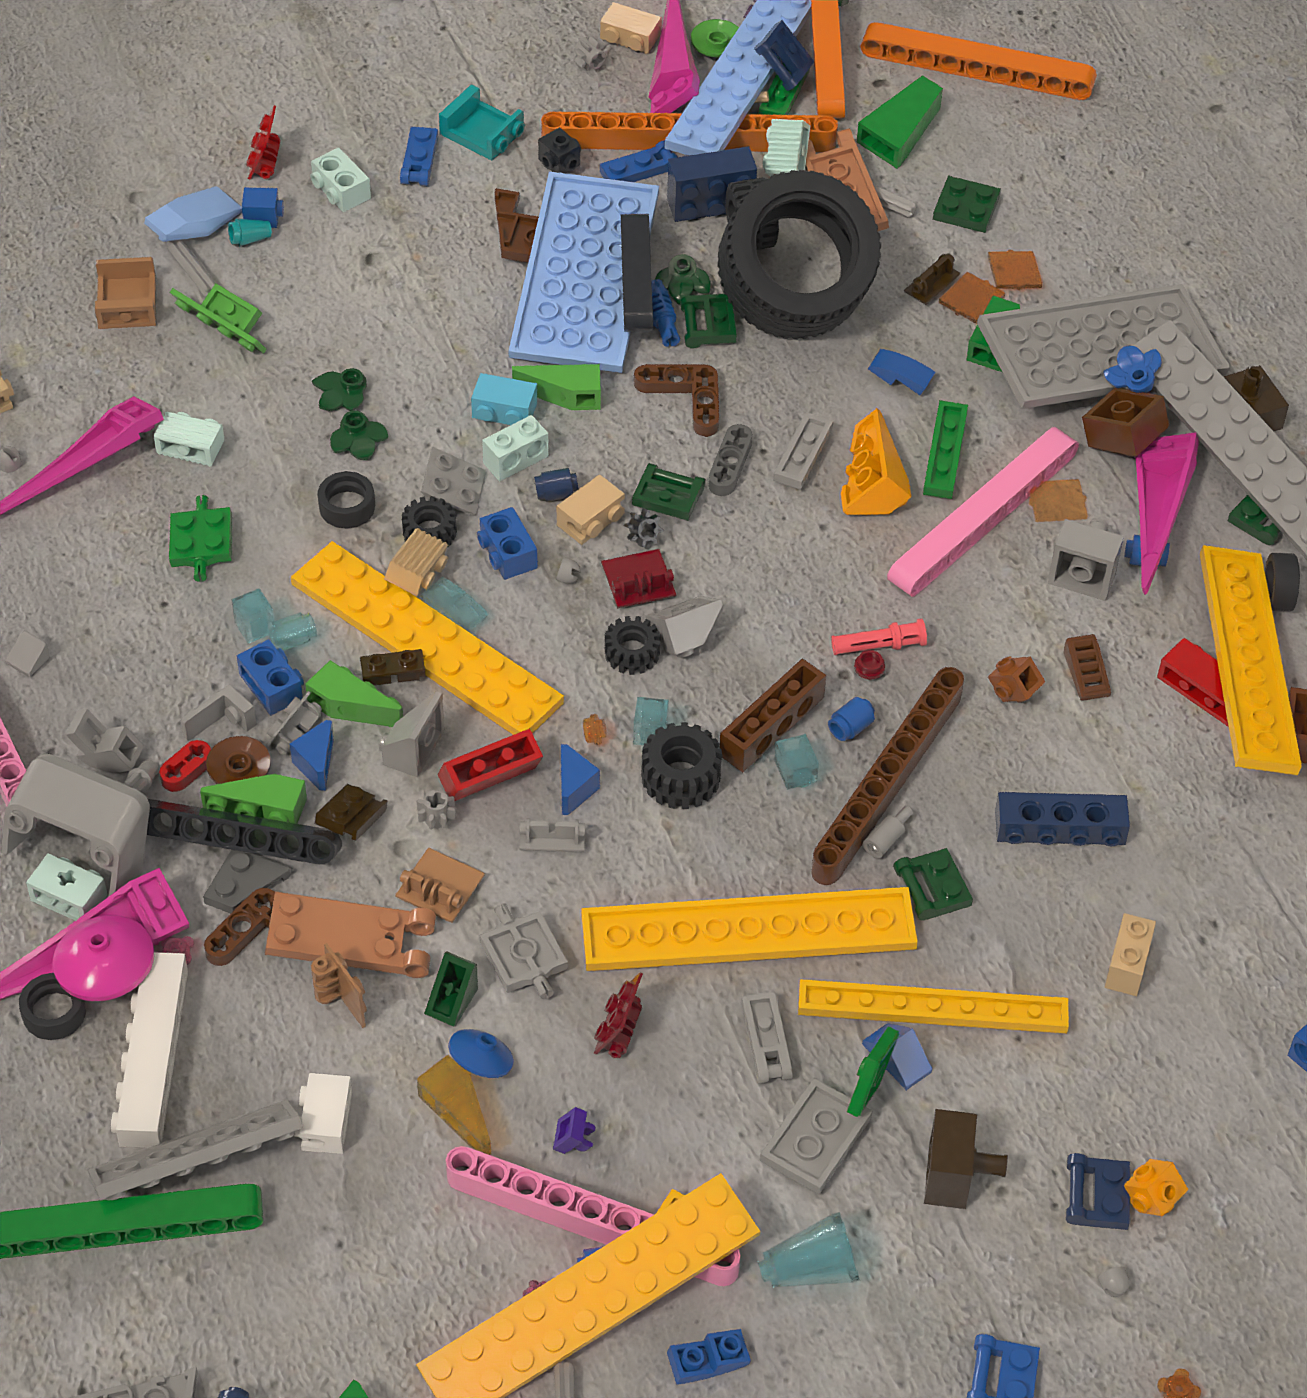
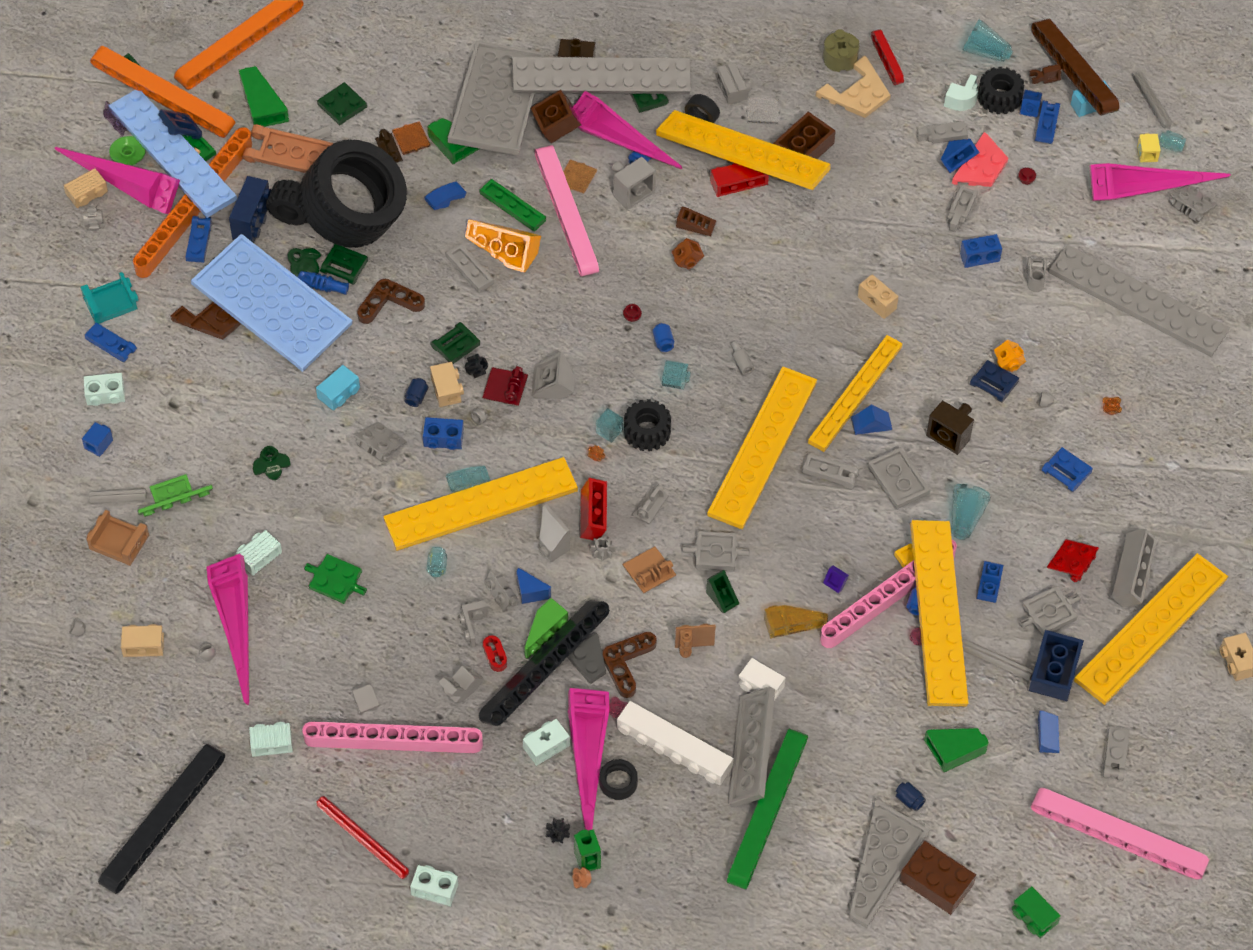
camera: 60 degrees left, 5 degrees up
(84, 805) = (514, 703): light grey windscreen -> none
(105, 969) = (611, 749): dark pink dish -> none
(142, 777) = (497, 676): light grey axle -> none
(193, 215) = (77, 476): light blue piece -> none
(237, 753) = (512, 619): reddish brown dish -> none
(248, 231) = (111, 454): teal cone -> none
(253, 615) = (415, 575): clear light blue brick -> none
(266, 149) = (49, 414): red hinge -> none
(270, 676) = (463, 591): blue brick -> none
(346, 482) = (358, 508): black tyre -> none
(350, 698) = (502, 554): bright green slope -> none
(350, 812) = (580, 587): dark brown plate -> none
(355, 930) = (658, 623): nougat hinge -> none
(357, 435) = (314, 470): dark green plate -> none
(405, 664) = (494, 525): dark brown hinge -> none
(417, 562) = (431, 480): tan brick -> none
(430, 511) = (403, 455): black tyre -> none
(480, 1053) = (767, 596): blue dish -> none
(515, 448) = (378, 398): light aqua brick -> none
(559, 151) = (166, 270): black brick -> none
(564, 385) = (349, 352): bright green slope -> none
(578, 779) = (622, 477): blue slope -> none
(622, 1016) = (785, 524): dark red hinge -> none
(632, 631) = (550, 401): black tyre -> none
(636, 273) = (299, 276): black beam -> none
(732, 470) = (450, 297): dark grey beam -> none
(772, 715) = (642, 367): reddish brown brick -> none
(787, 146) = (249, 160): light aqua brick -> none
(872, 1071) = (887, 432): green plate -> none
(887, 776) = (702, 330): reddish brown beam -> none
(893, 636) = (621, 292): coral pin -> none
(941, 879) = (785, 352): dark green plate -> none
(1014, 270) = (406, 108): clear orange piece -> none
(1049, 810) = (764, 299): dark blue brick -> none
(1131, 367) = (528, 91): blue plate -> none

